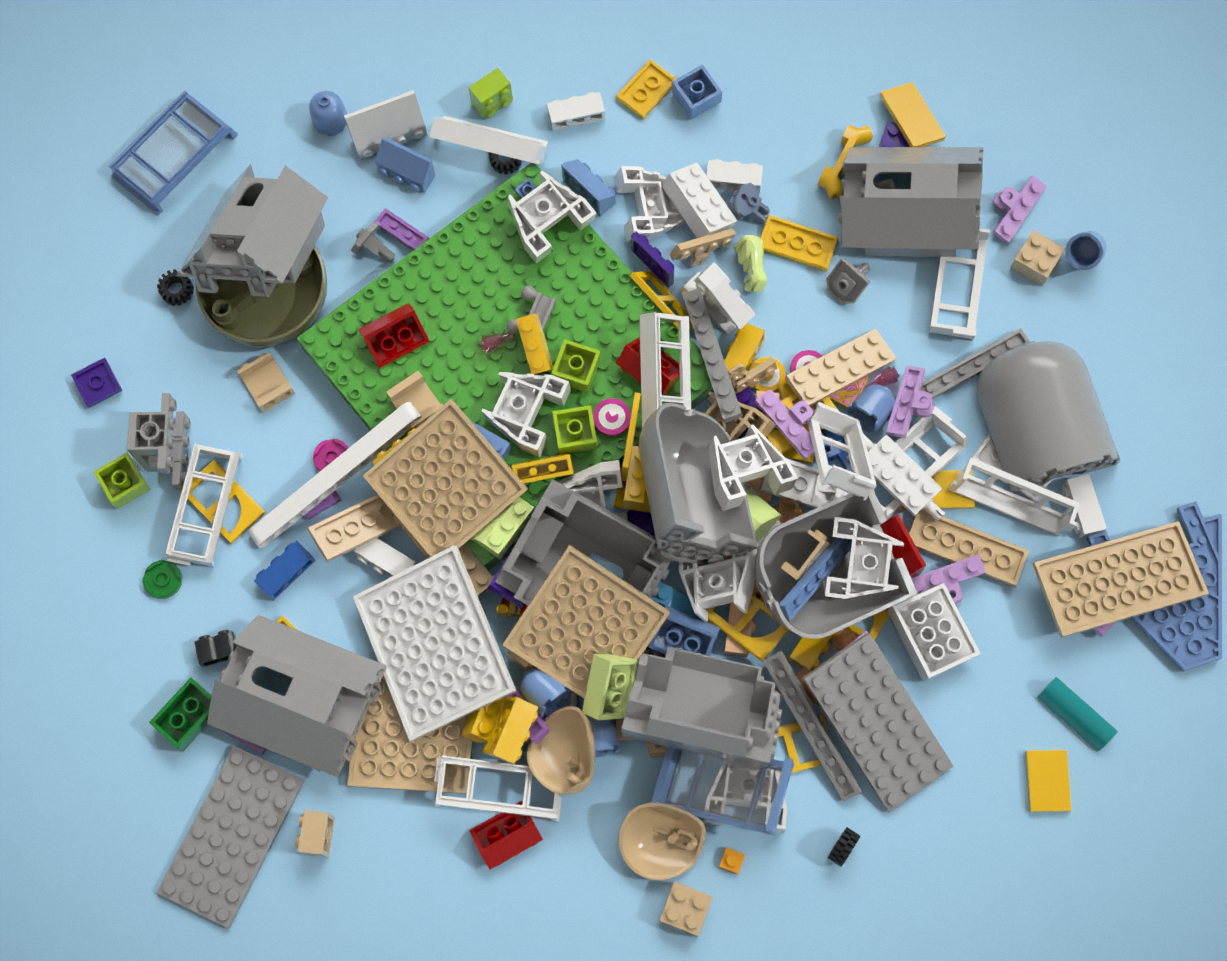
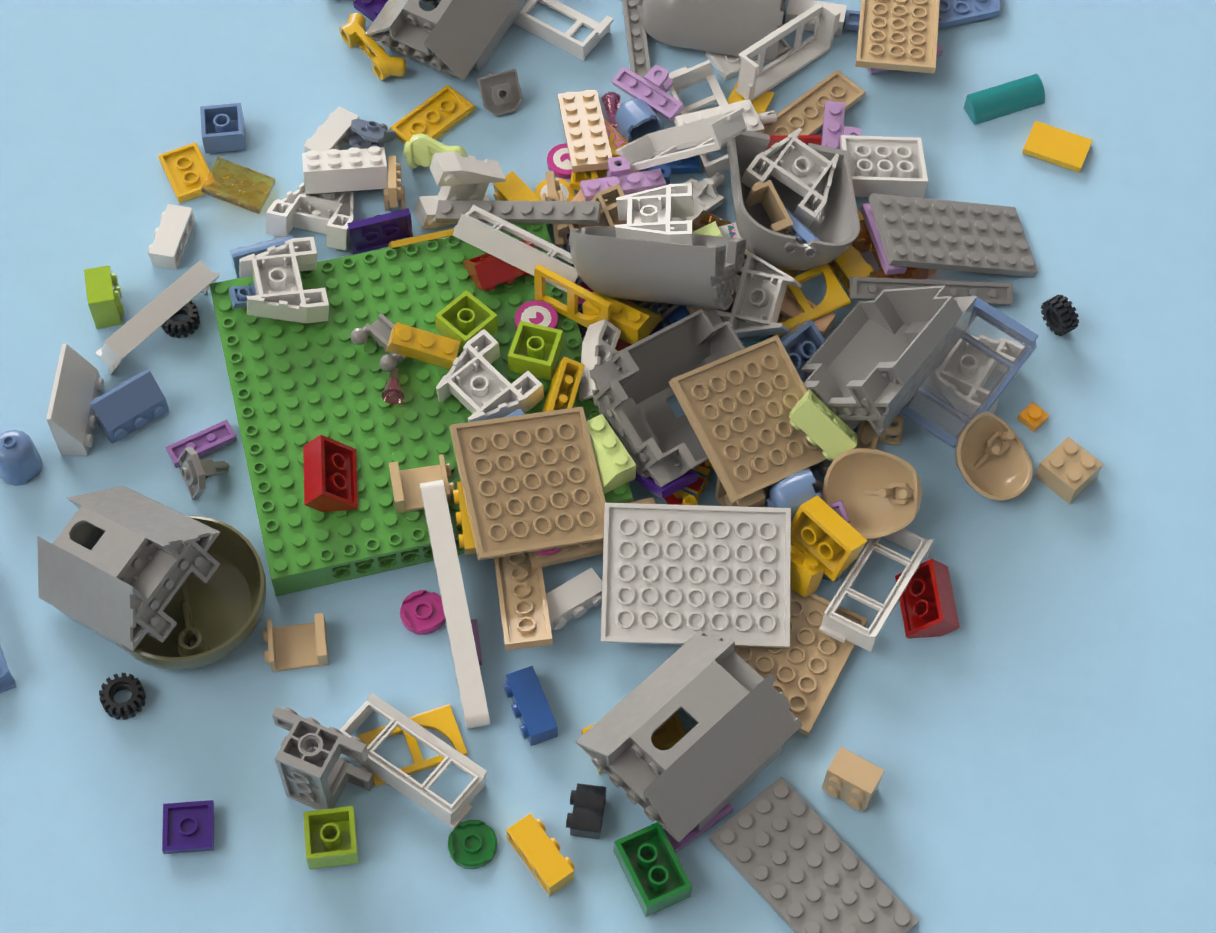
camera: 70 degrees left, 15 degrees down
(170, 630) = (540, 854): none -> yellow brick
(648, 132) = (238, 185): none -> clear yellow plate

